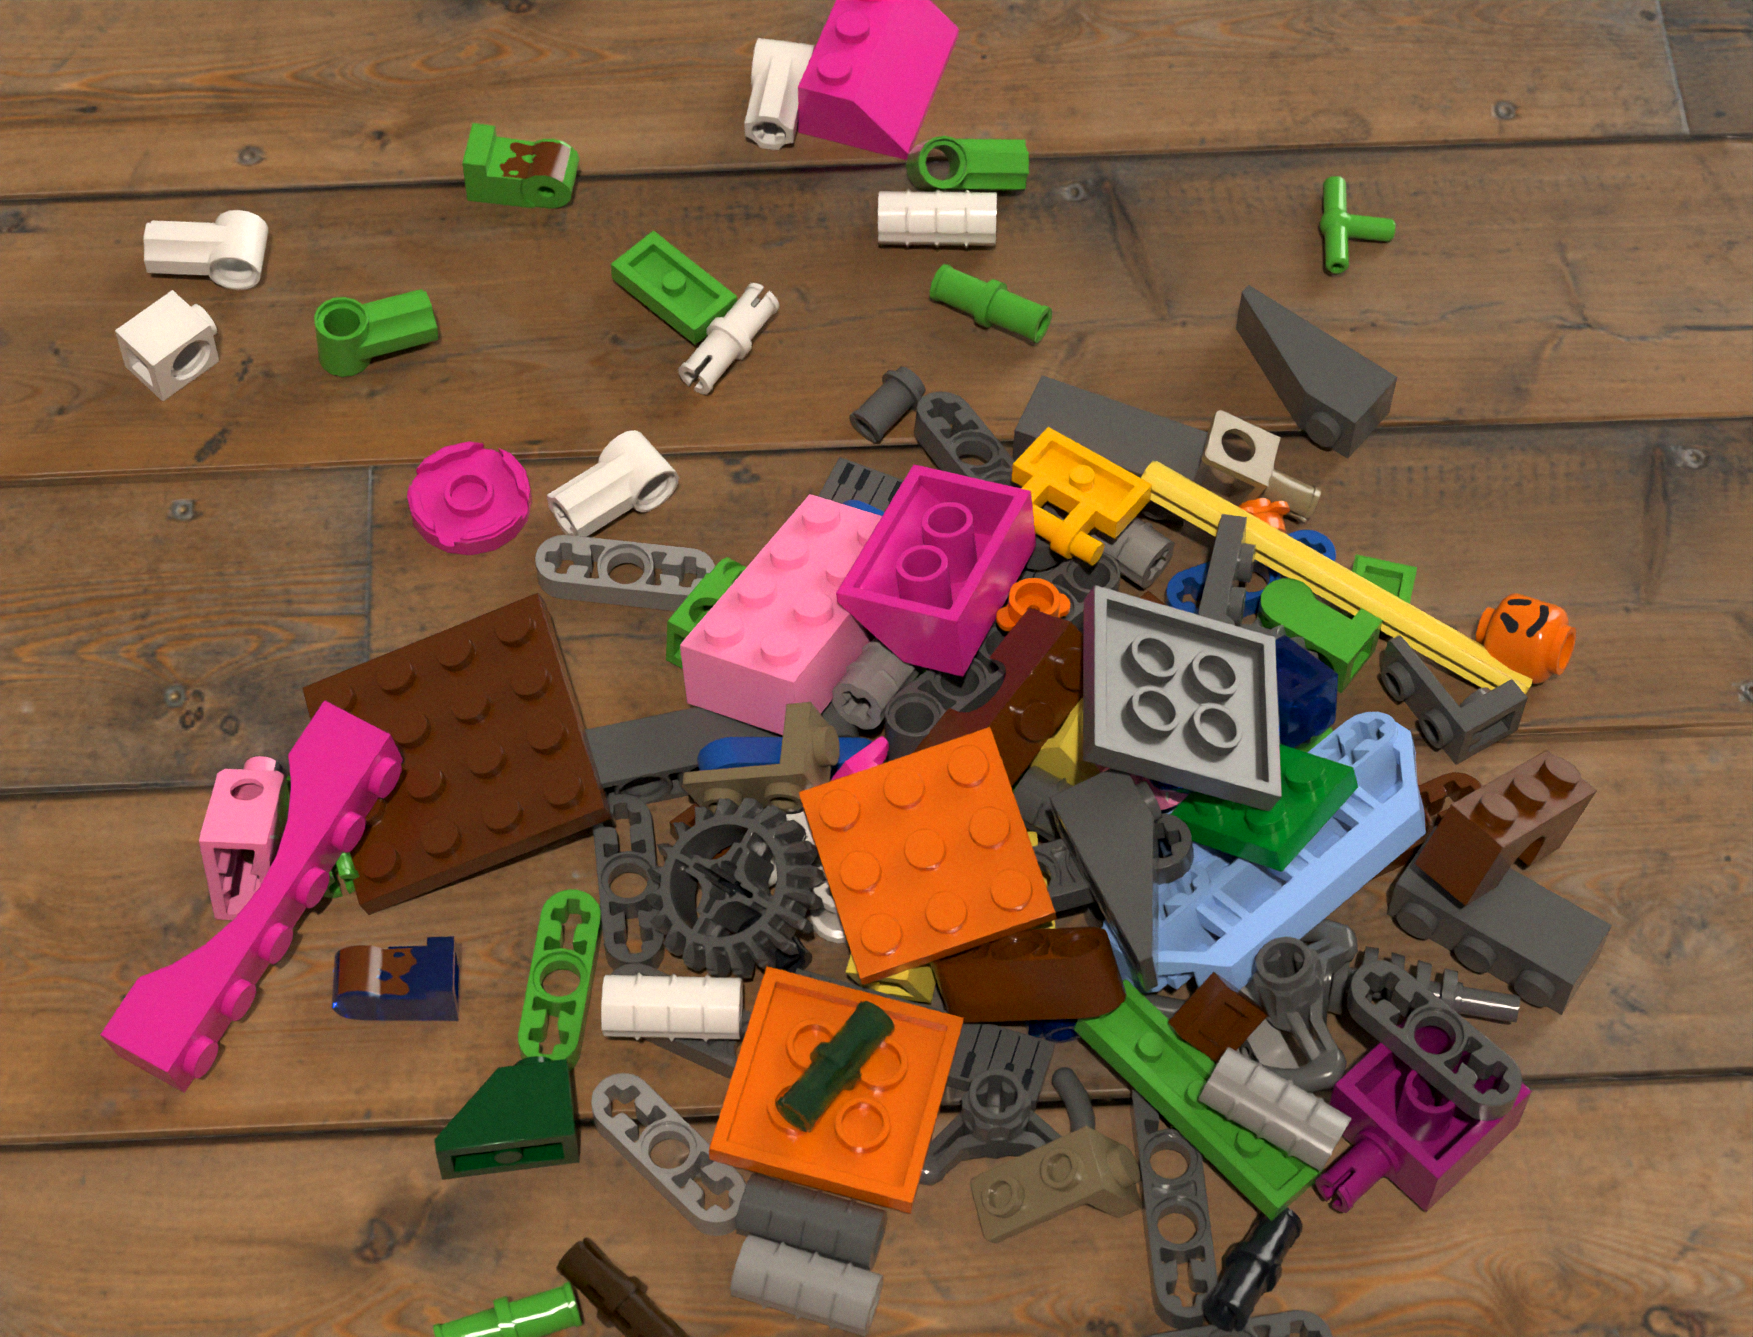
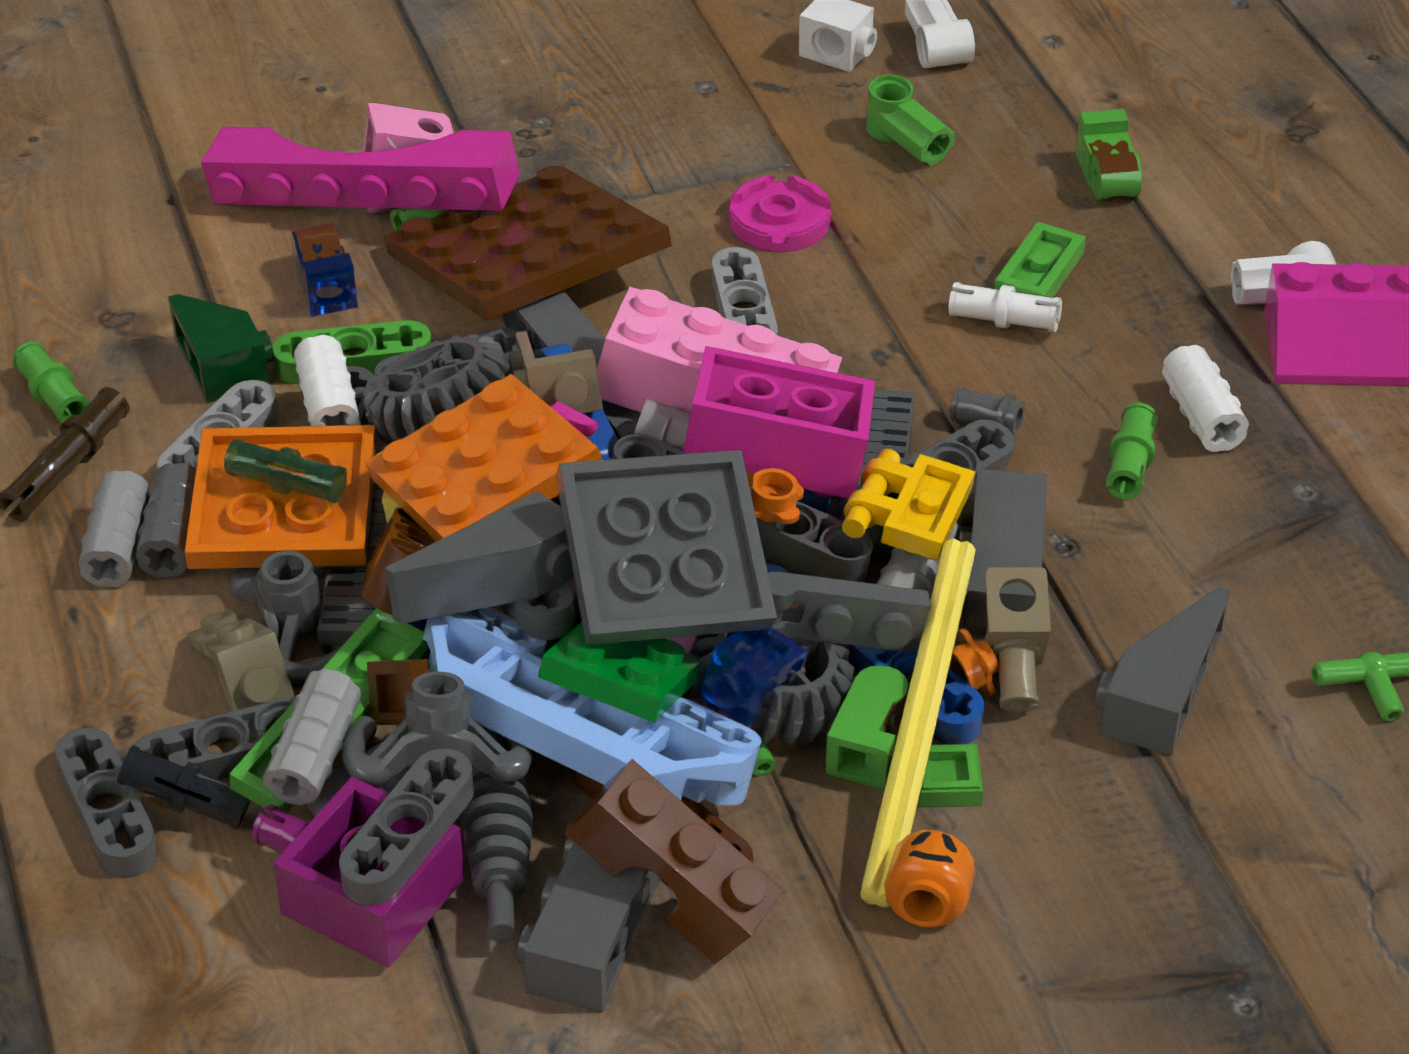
camera: 75 degrees right, 15 degrees down
(626, 477) = (828, 280): white piece -> none
(973, 164) = (1273, 400): bright green piece -> none
(1457, 729) = (809, 838): dark grey bracket -> none

